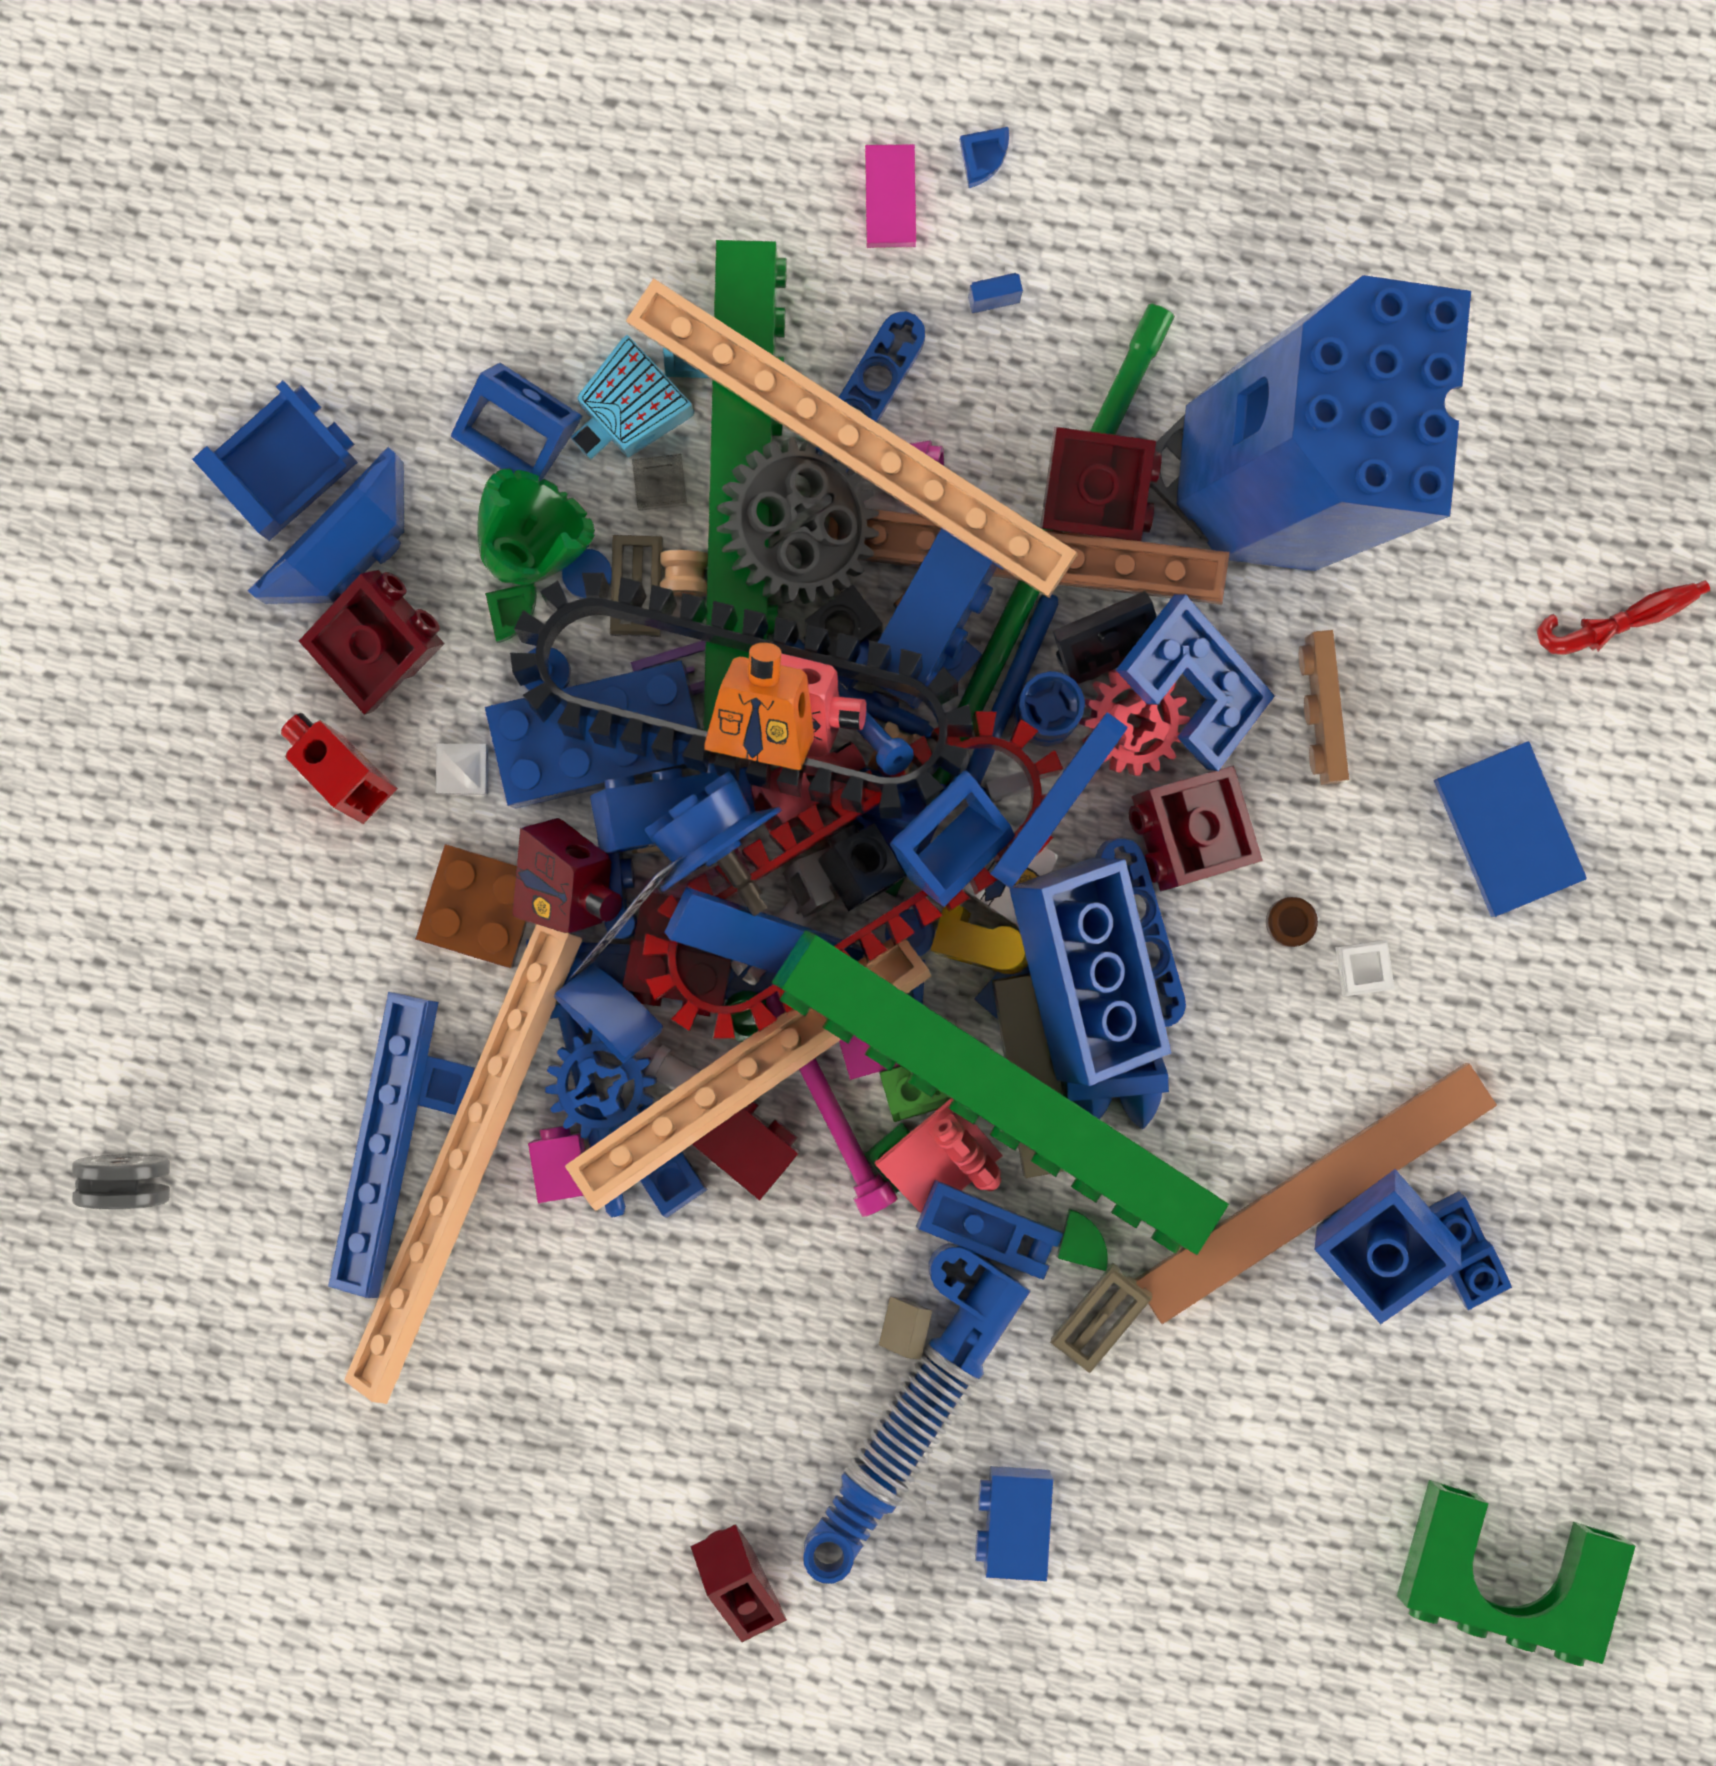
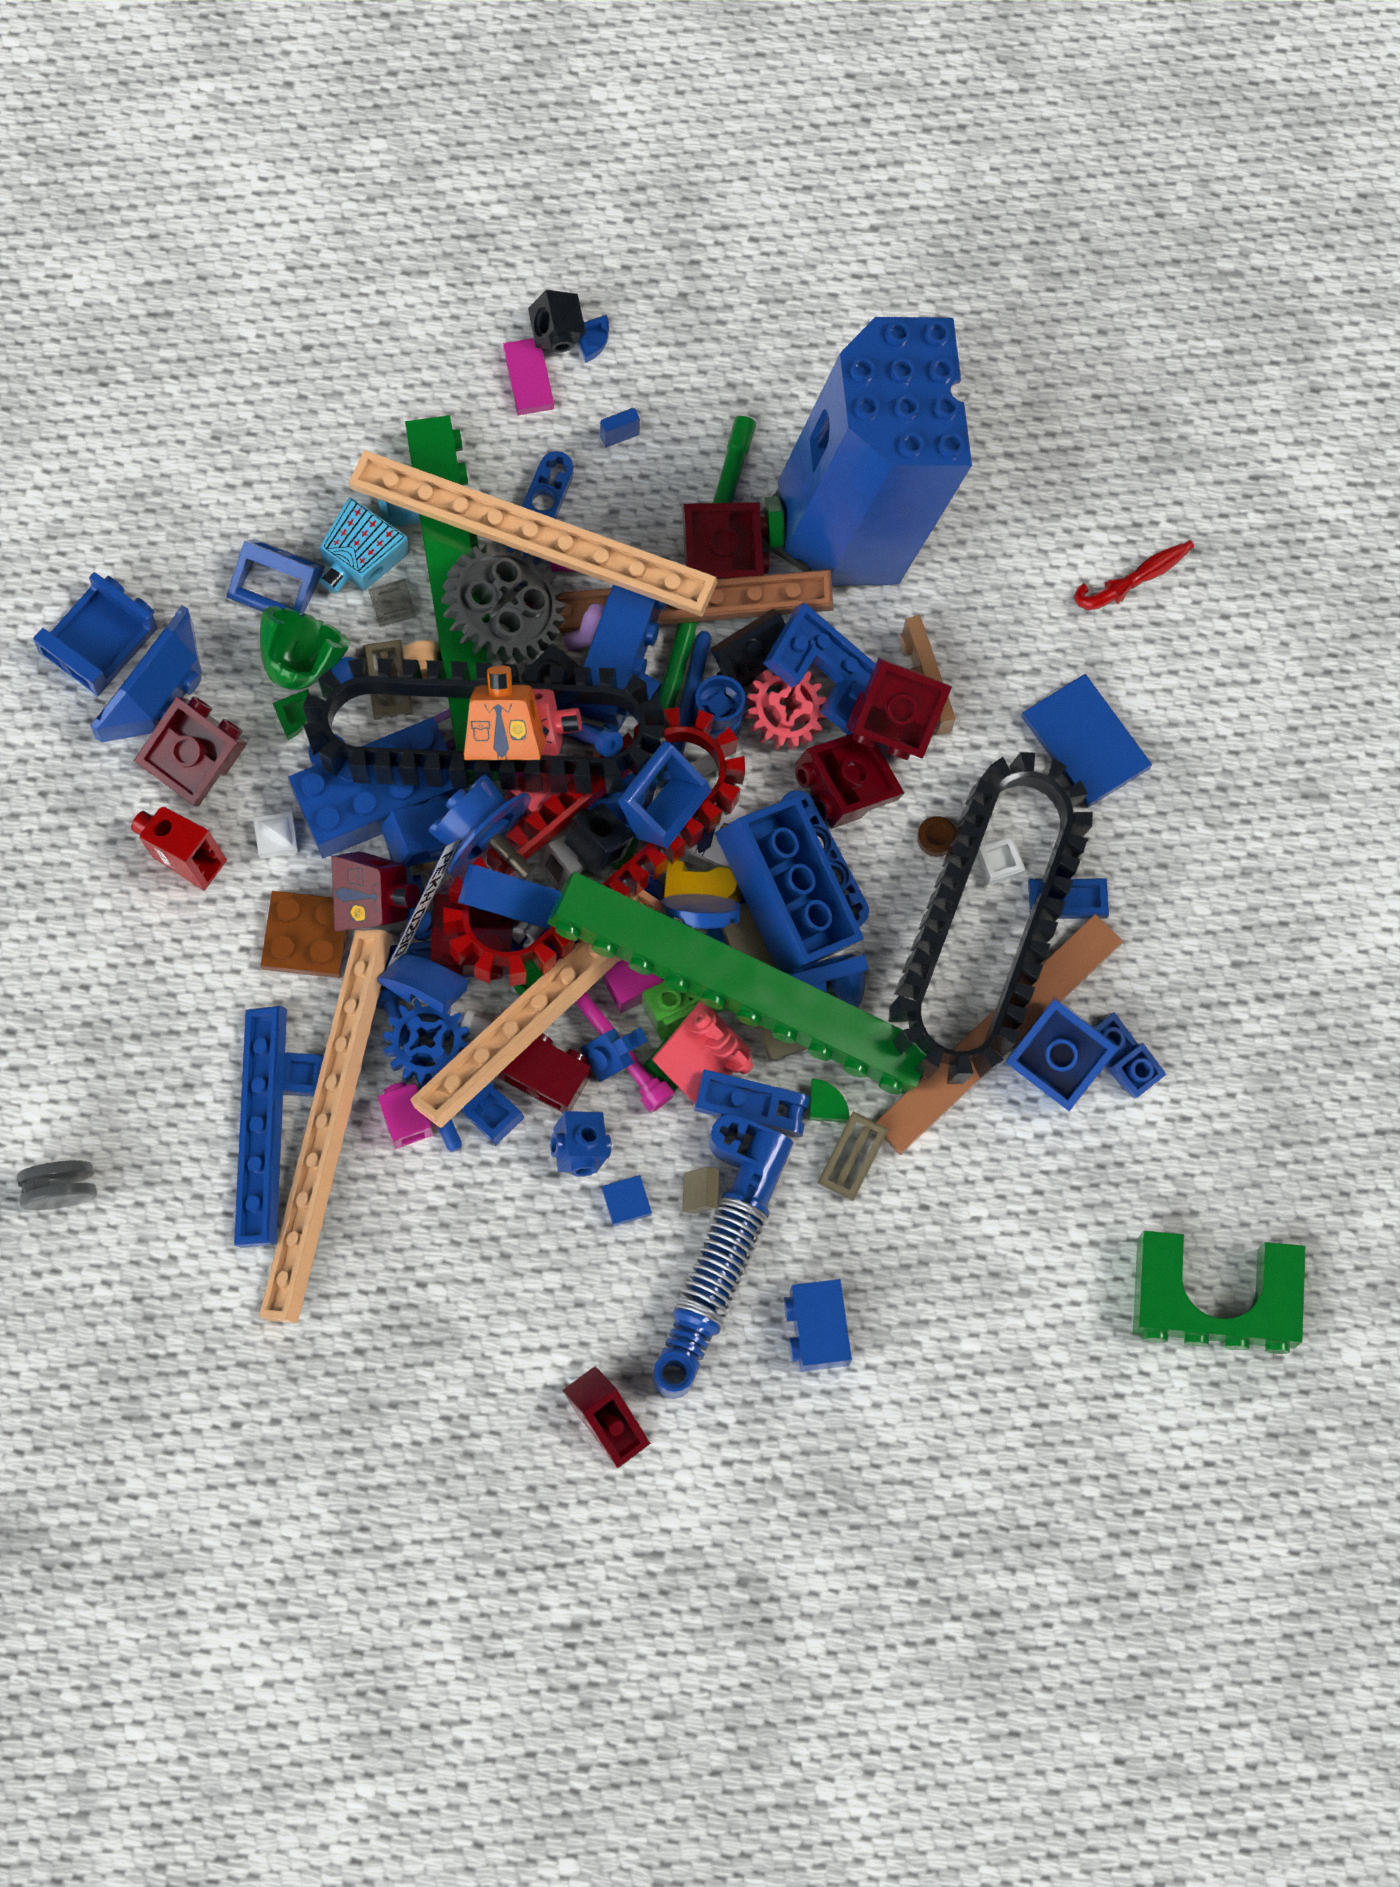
camera: 15 degrees left, 15 degrees down
(768, 1245) = (580, 1143): none -> blue brick
(813, 1319) = (626, 1200): none -> blue tile
(826, 1139) = (610, 1053): none -> blue plate
(903, 569) = (584, 636): none -> lavender arm
(940, 128) = (557, 320): none -> black brick
(970, 992) = (702, 910): none -> blue tile
(1058, 800) = (738, 757): blue beam -> none
(1172, 463) = (775, 521): none -> green tile
(1277, 761) = (898, 710): none -> dark red plate
(1389, 867) = (1037, 932): none -> black piece
(1440, 1033) = (1084, 898): none -> blue tile

